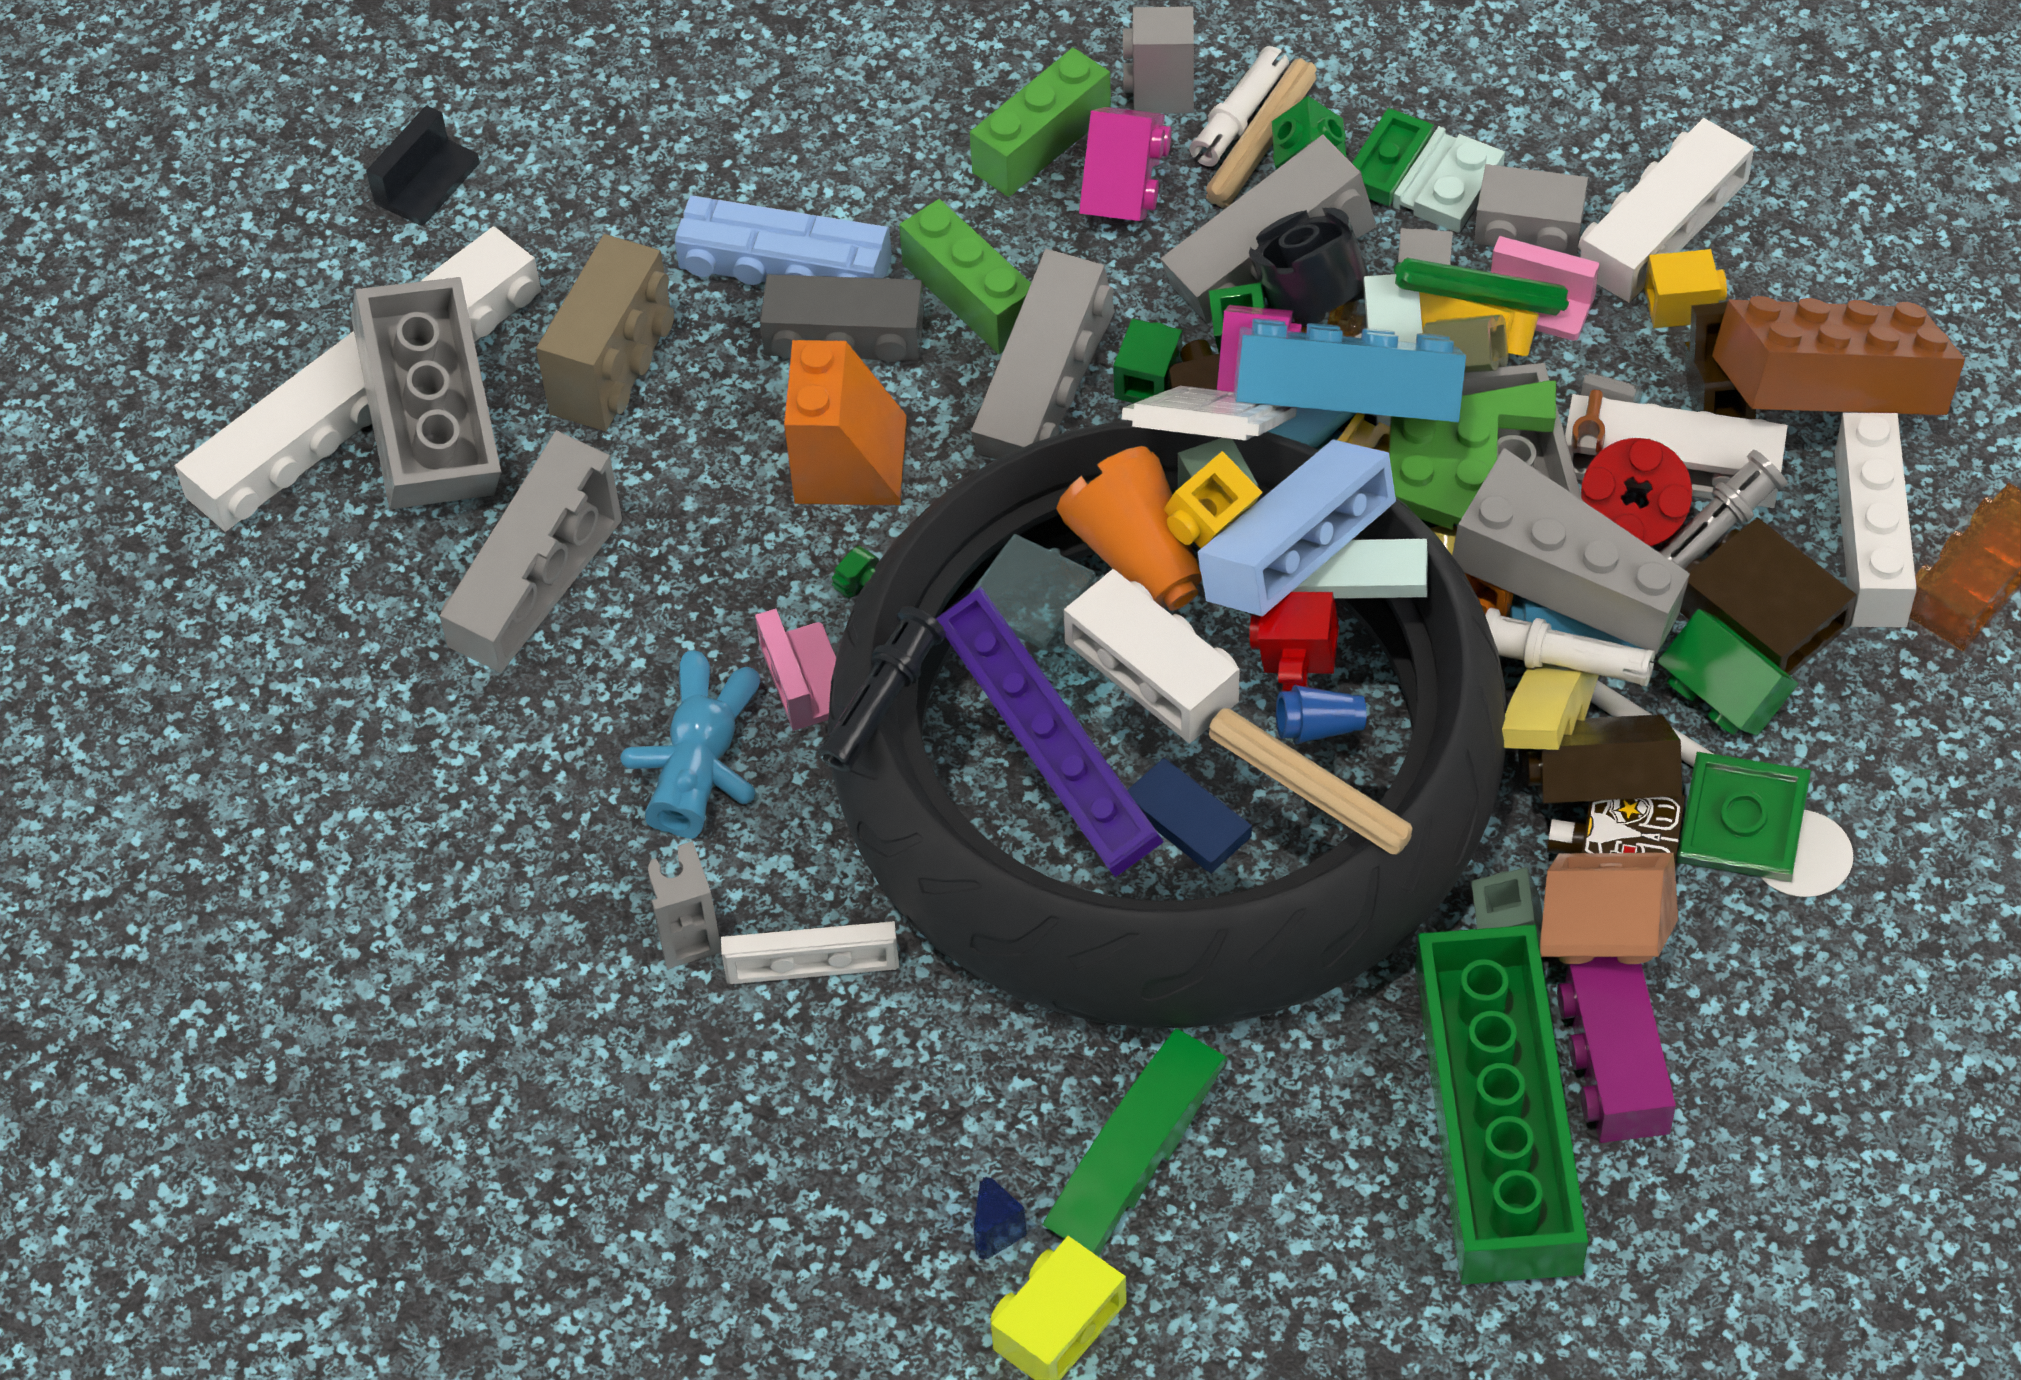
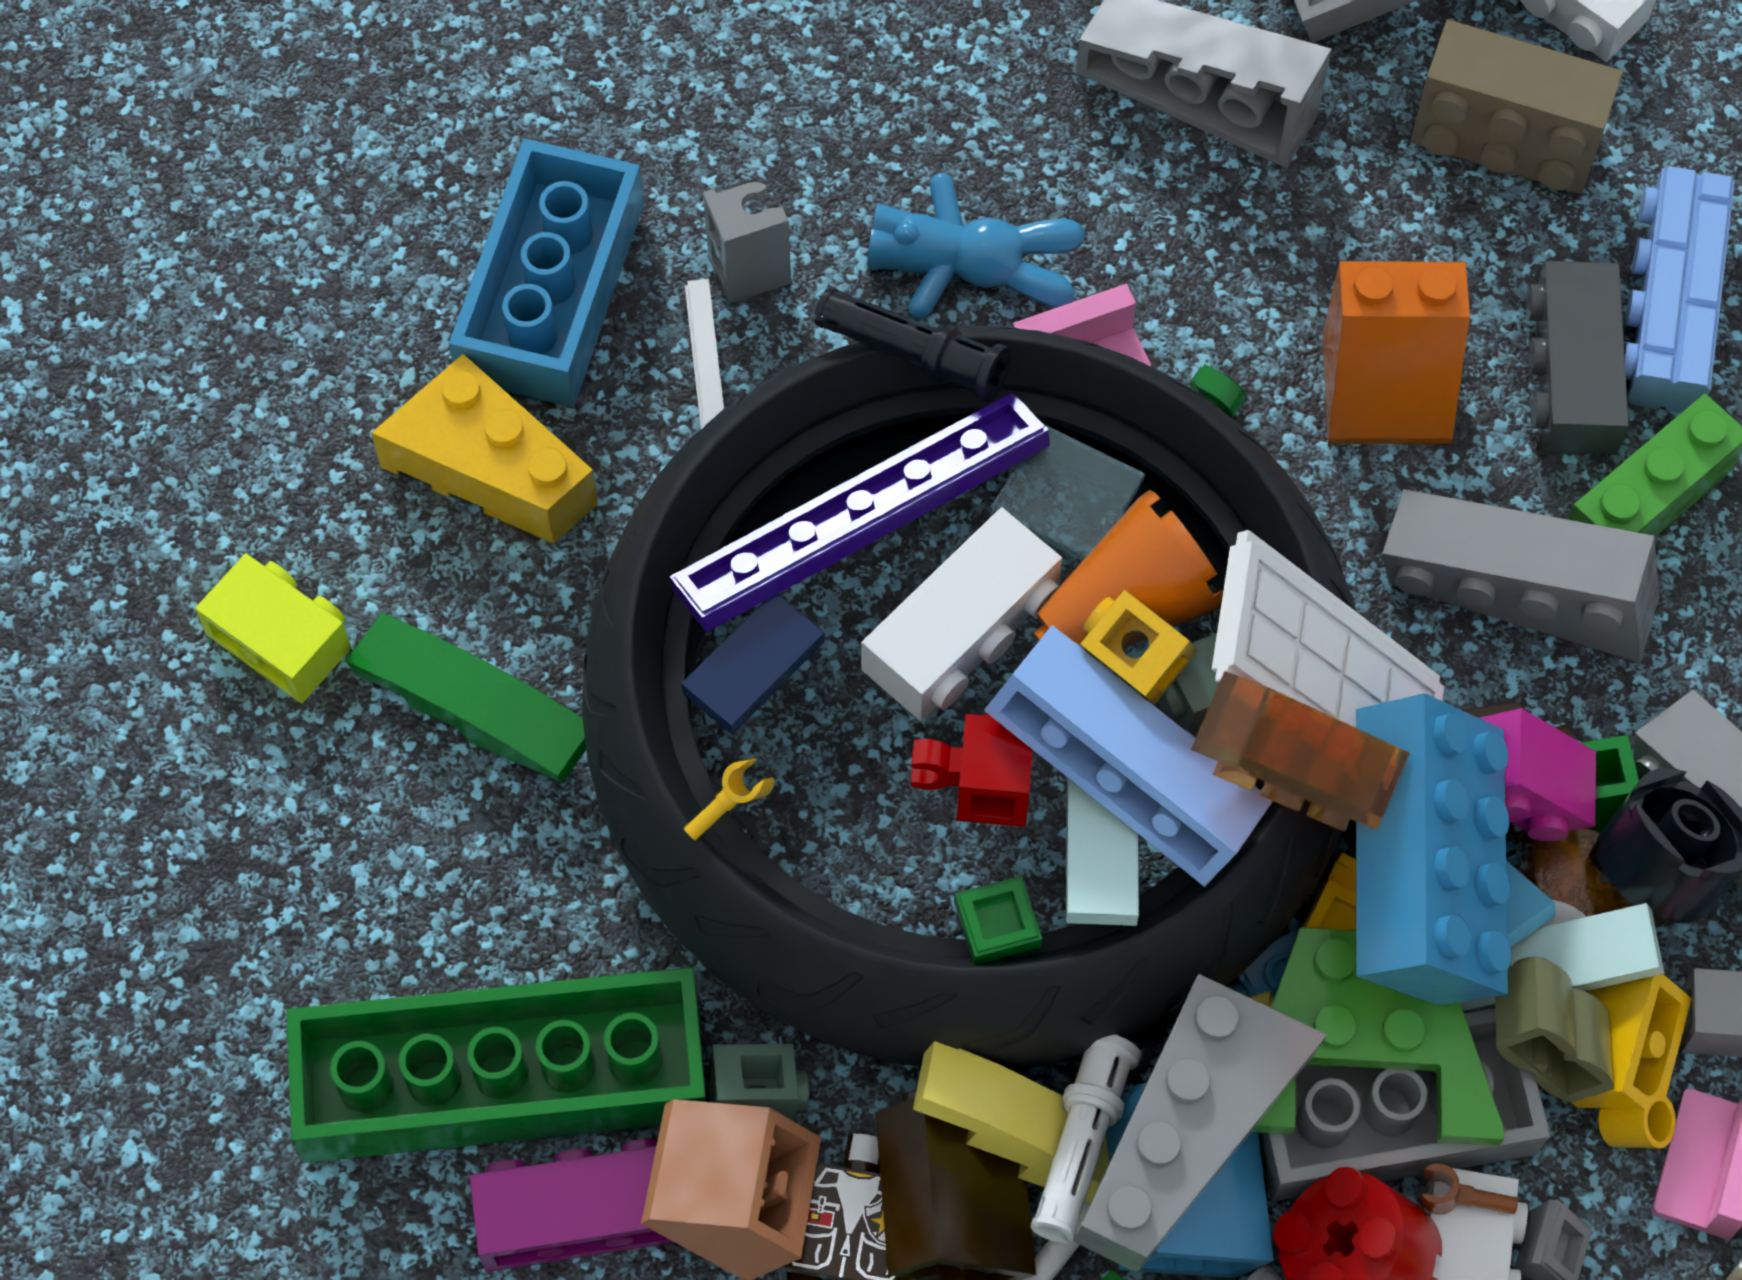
camera: 85 degrees right, 10 degrees up
(695, 1077) = (549, 270): none -> dark azure brick
(881, 1129) = (489, 450): none -> yellow wedge
(998, 1219) = (386, 563): clear blue slope -> none
(1145, 360) = (1548, 684): green brick -> none
(1304, 407) = (1298, 754): none -> clear orange brick
(1310, 781) = (793, 789): tan axle -> none
(1316, 714) = (881, 793): blue cone -> none
(1318, 813) = (733, 793): none -> yellow hand
(1417, 654) = (998, 920): none -> green tile
(1481, 286) = (1668, 1061): green axle -> none

